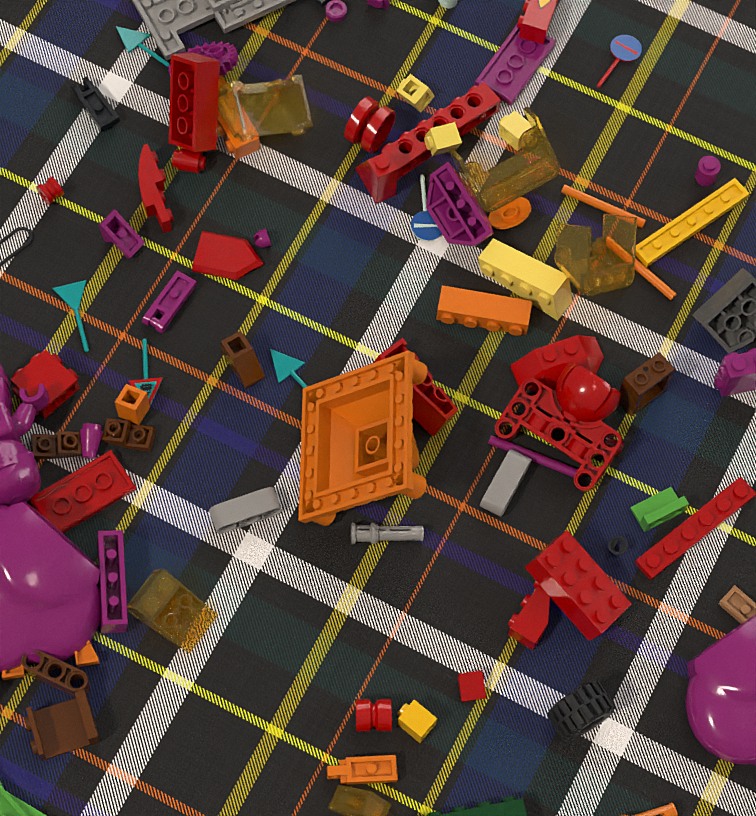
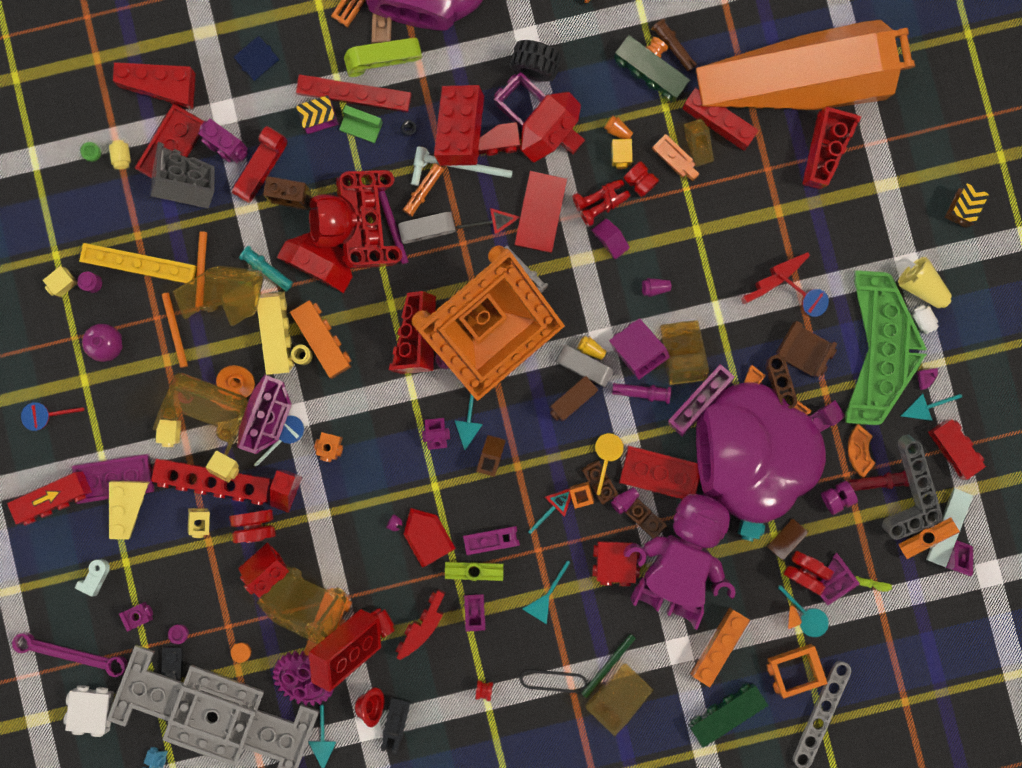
camera: 125 degrees left, 20 degrees up
(100, 775) = (814, 301): none -> blue piece
(127, 94) = (370, 707): none -> red hat
(147, 274) = (460, 570): none -> lime piece
(150, 468) = (609, 448): none -> yellow piece
(157, 766) = (767, 284): none -> red slope
(163, 547) = (651, 393): none -> magenta pin
(213, 566) = (639, 348): none -> magenta brick
(223, 467) = (573, 399): none -> reddish brown window
(257, 530) = (591, 347): none -> yellow cone
(257, 639) = (655, 286): none -> magenta cone
(273, 42) = (241, 652): none -> orange tile
(307, 331) = (437, 437): none -> magenta brick
(324, 103) = (263, 570): none -> red brick
(342, 639) = (611, 238): none -> magenta slope
(379, 667) = (610, 198): none -> red piece
(381, 239) = (321, 447): none -> orange brick
(428, 598) = (540, 212): none -> red tile
(443, 740) = (618, 128): none -> orange cone
(453, 555) = (499, 220): none -> piece
(482, 50) = (124, 506): none -> light yellow wing
(484, 280) = (297, 350): none -> light yellow brick
(506, 676) = (549, 125): none -> red wedge
(526, 652) = (513, 83): none -> magenta window
(542, 500) = (423, 189): none -> orange pin
(575, 530) = (422, 158): none -> light aqua bar
(601, 317) = (258, 263): none -> teal pin
(644, 142) = (102, 342): none -> magenta cylinder
(701, 475) = (317, 114): none -> piece
(702, 407) = (260, 165): none -> red beam
(709, 580) = (382, 54): none -> lime beam
(729, 150) = (60, 282): none -> light yellow brick

